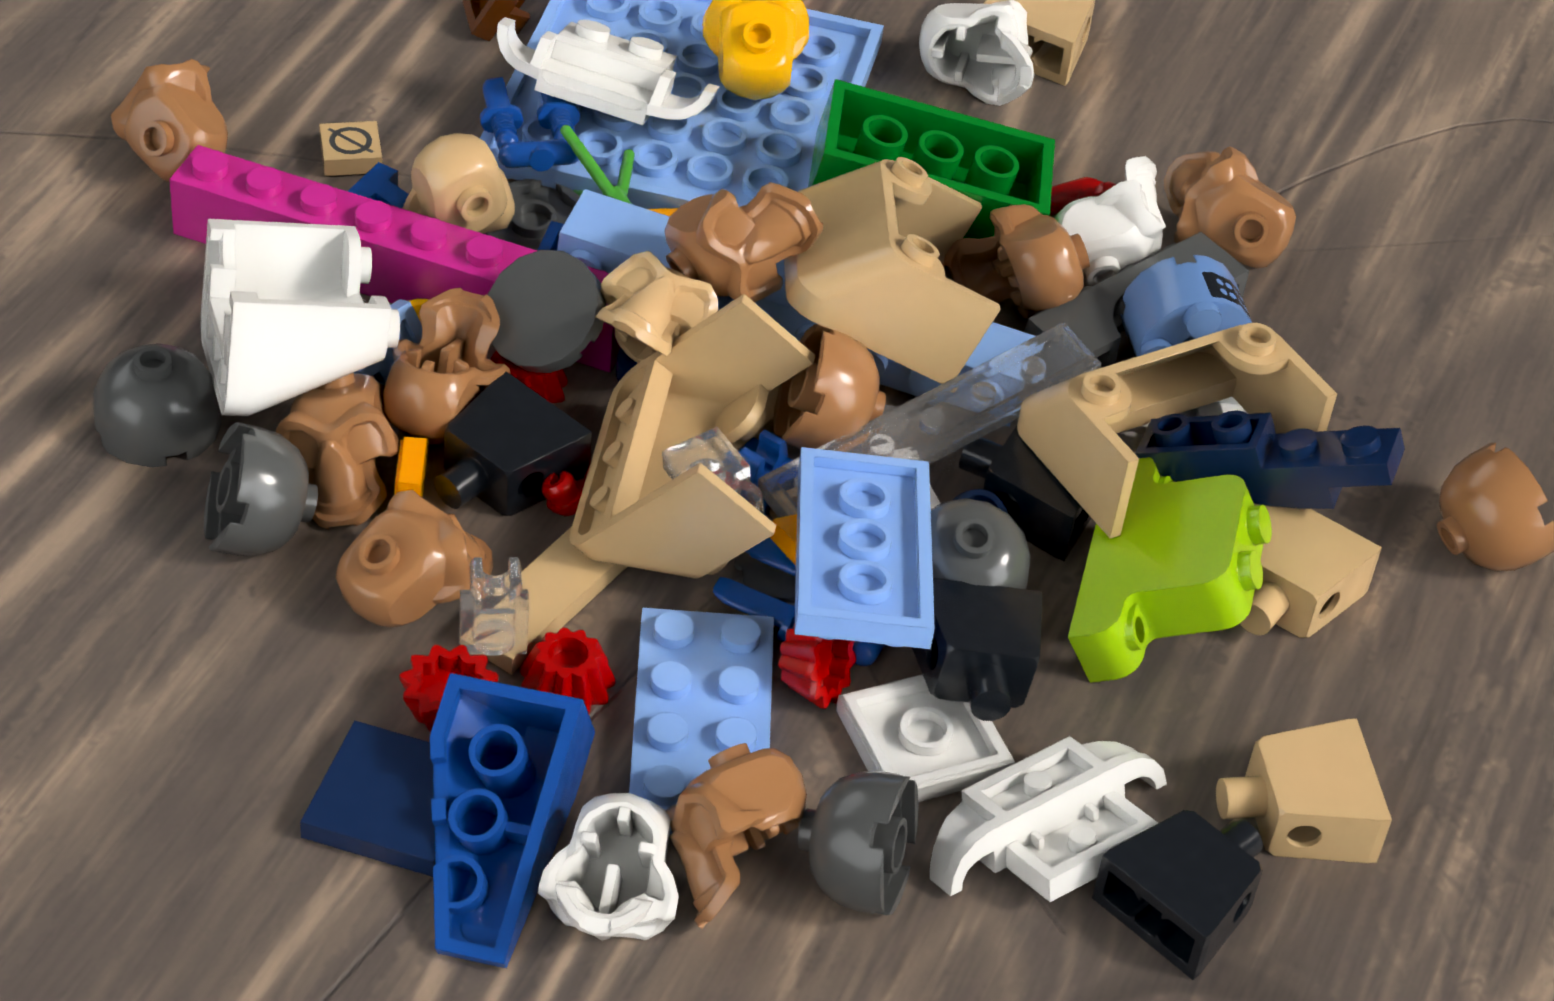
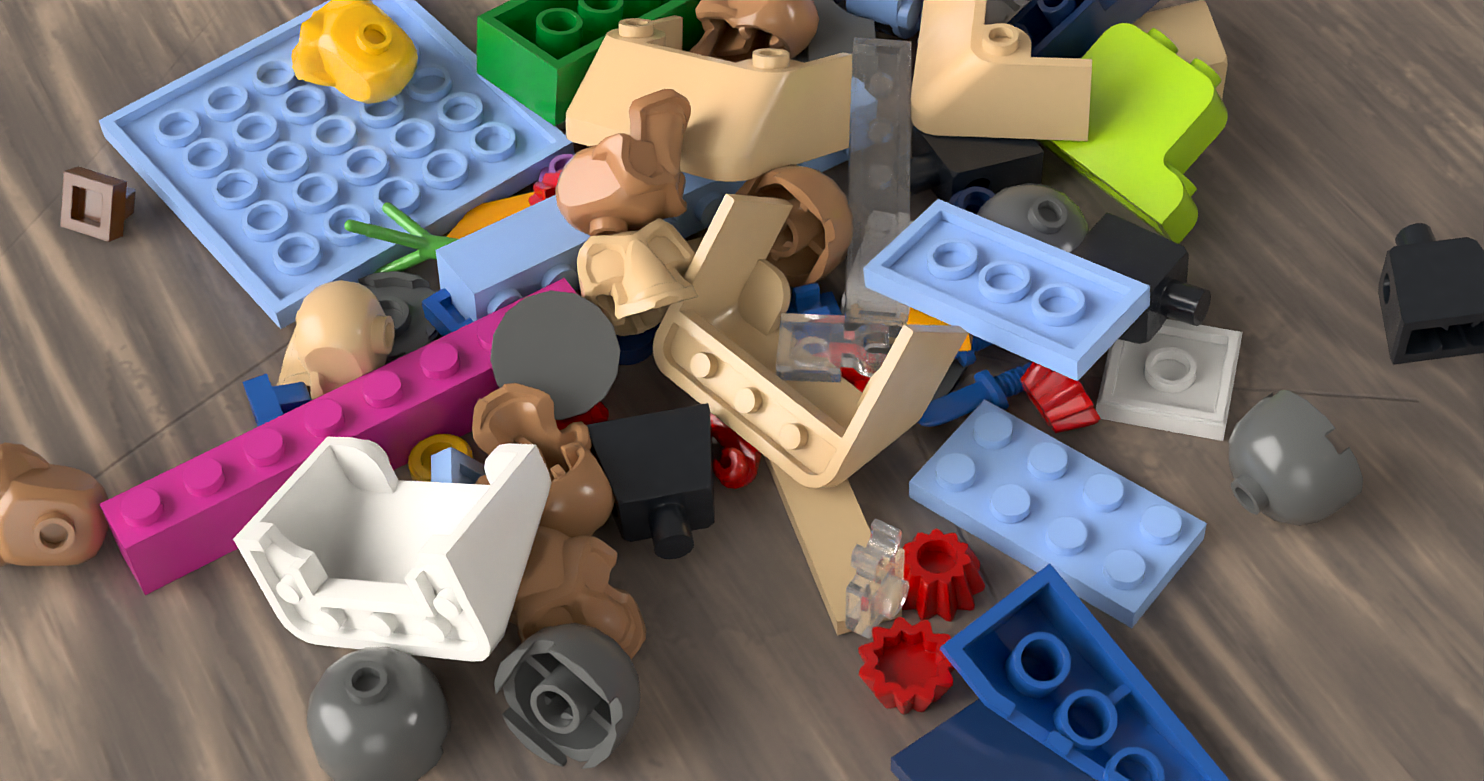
camera: 45 degrees left, 5 degrees up
(349, 147) = (170, 401): tan tile -> none
(408, 562) = (749, 615): medium nougat head -> none
(412, 465) = (641, 566): light orange tile -> none
(505, 119) = (294, 230): blue piece -> none
(603, 71) = (290, 165): white plate -> none
(614, 870) = (1218, 651): white head -> none
(726, 812) = (1219, 539): medium nougat head -> none
(1046, 817) = (1323, 337): white plate -> none
(1311, 794) = (1398, 174): tan torso -> none

